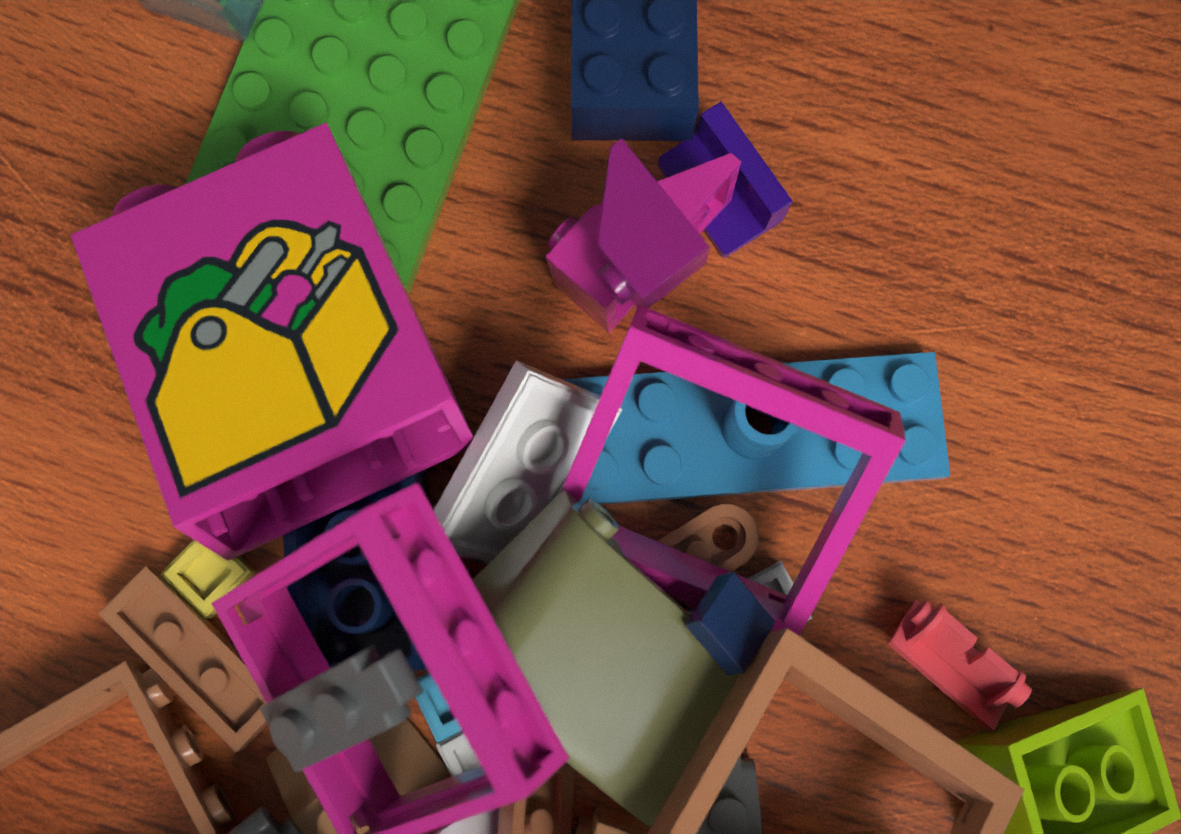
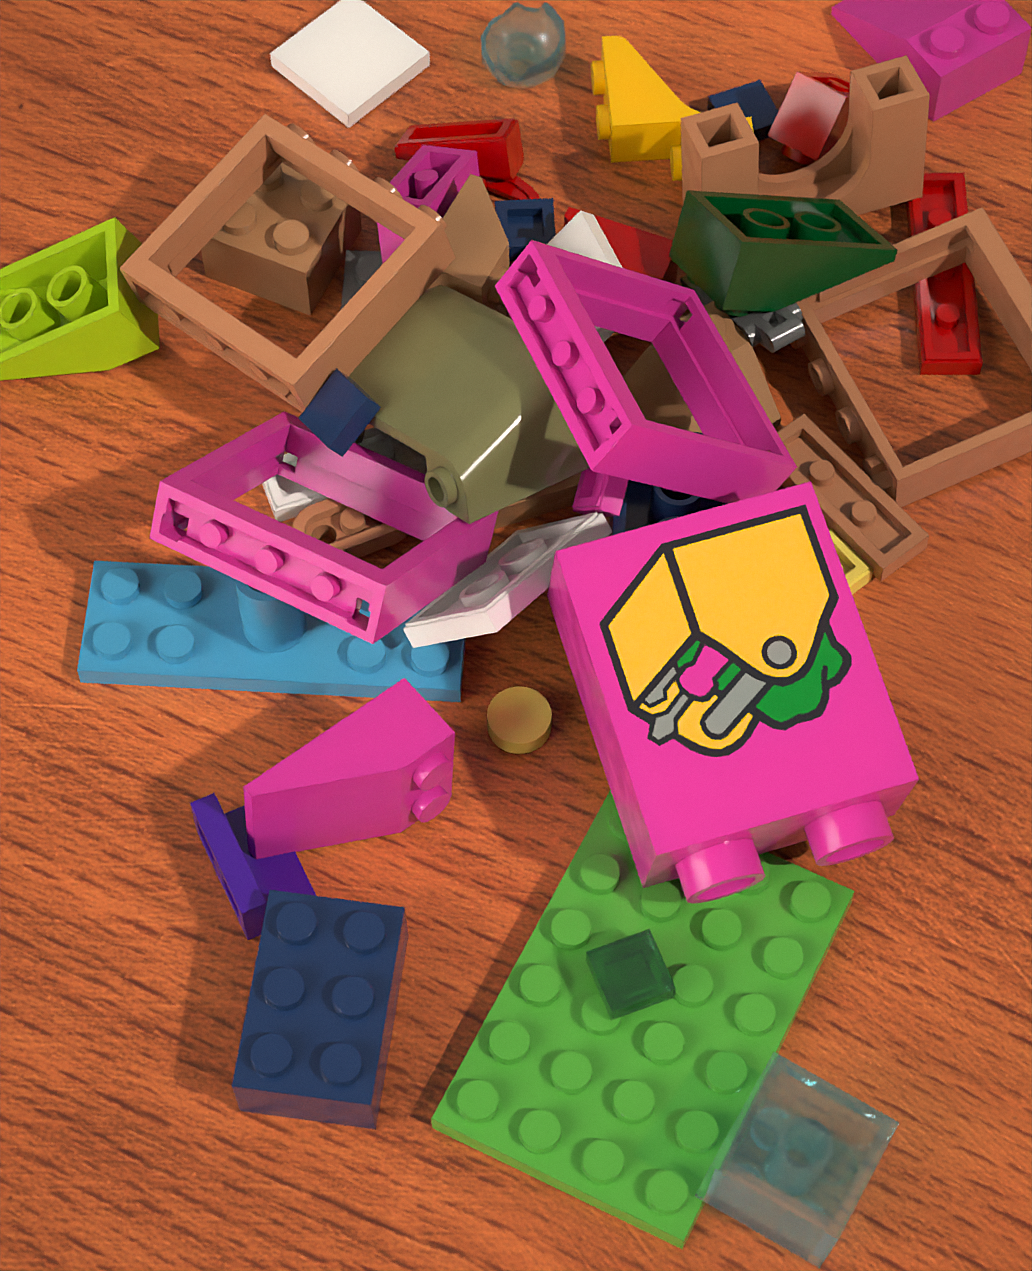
camera: 170 degrees left, 20 degrees down
(341, 706) = (682, 350): dark grey hinge -> none
(362, 97) = (630, 974): none -> clear green tile
(494, 357) = (519, 720): none -> light yellow tile
(643, 234) = (355, 709): magenta slope -> none
(946, 656) = (133, 409): coral hinge -> none

